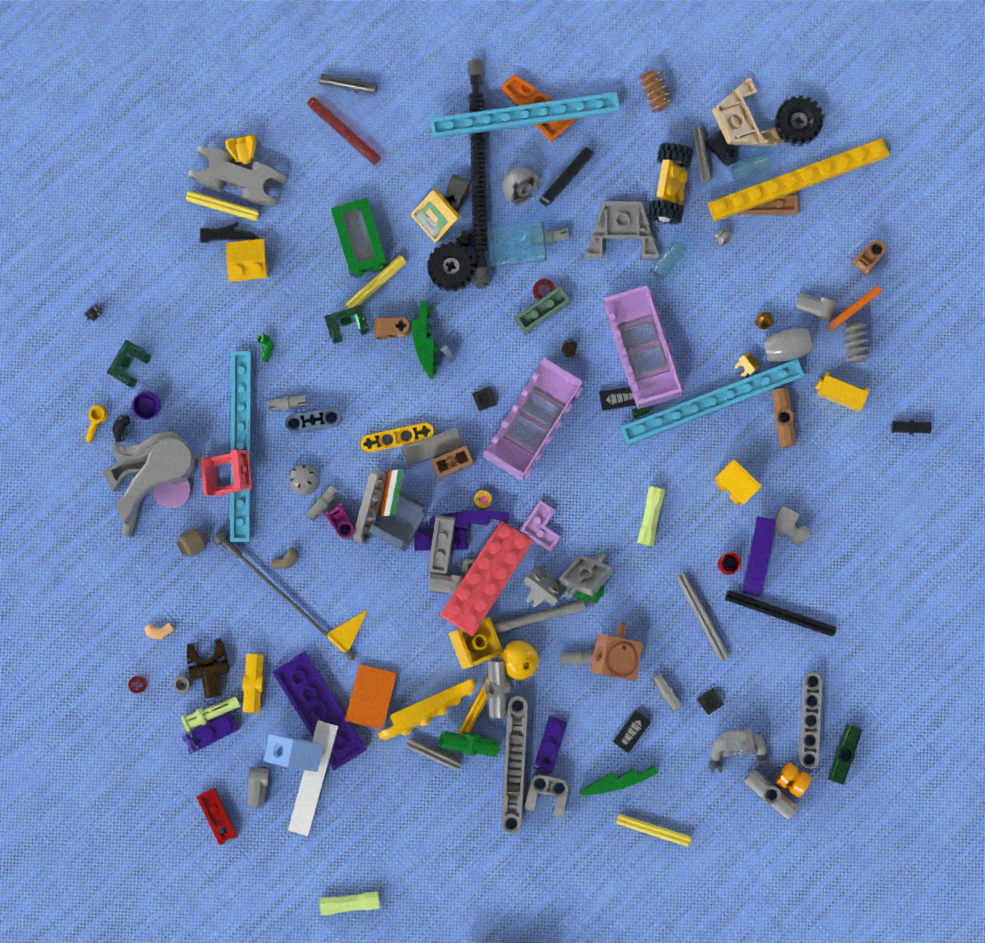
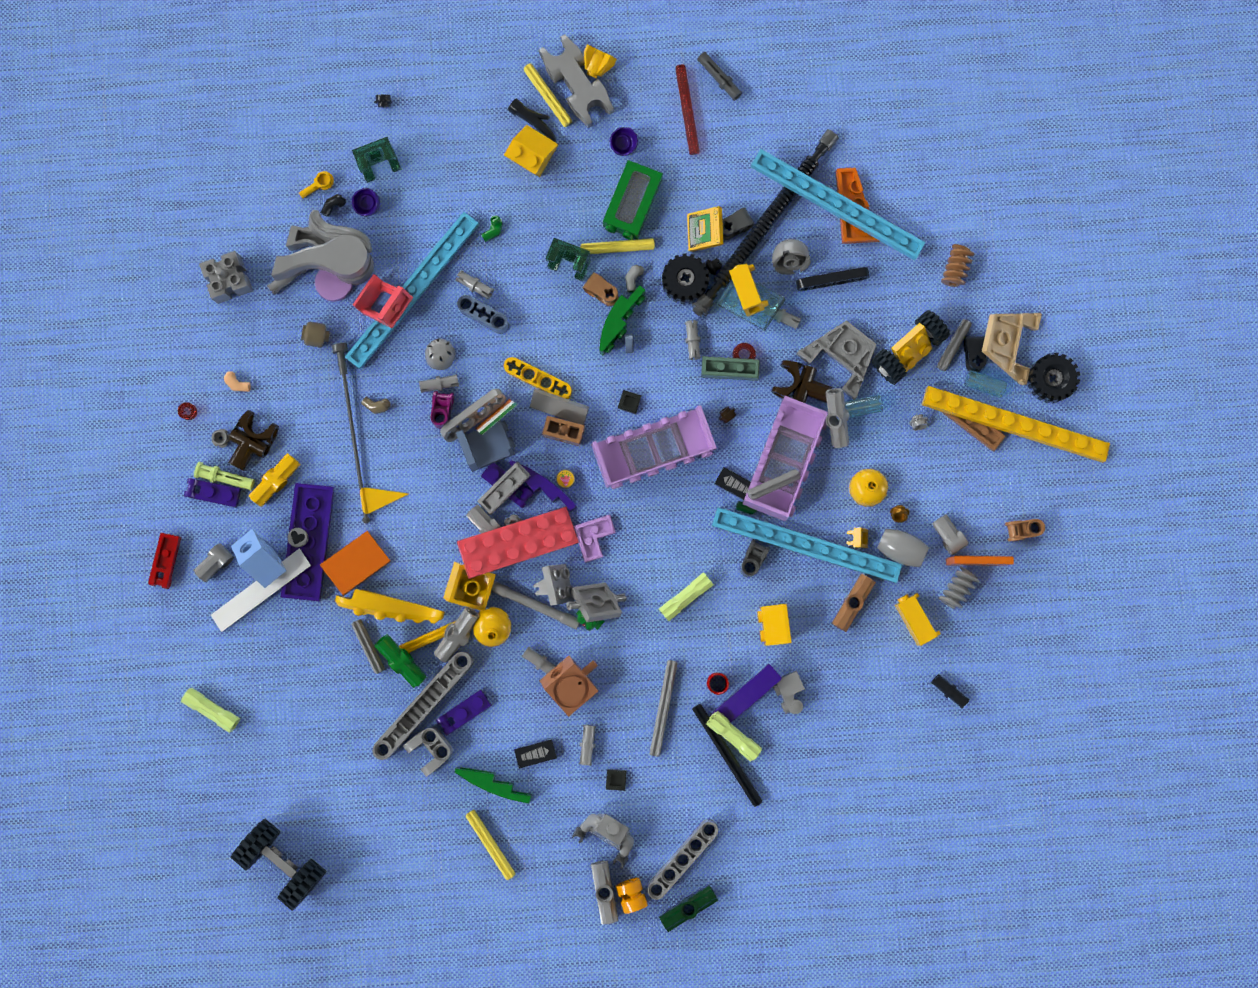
camera: 40 degrees right, 0 degrees up
(82, 553) = (226, 277): none -> light grey brick
(310, 712) = (297, 537): none -> light grey tile
(314, 195) = (623, 141): none -> dark purple hair
(406, 298) = (631, 276): none -> light grey arm
(495, 310) = (692, 340): none -> light grey pin
(507, 237) = (747, 289): none -> yellow brick
(609, 277) = (803, 383): none -> dark brown connector
(650, 375) = (773, 485): none -> light grey axle
(664, 289) = (837, 408): none -> light grey piece
(679, 441) = (755, 555): none -> dark grey piece
(721, 326) = (861, 491): none -> yellow cylinder
(787, 594) = (745, 745): none -> yellowish green axle

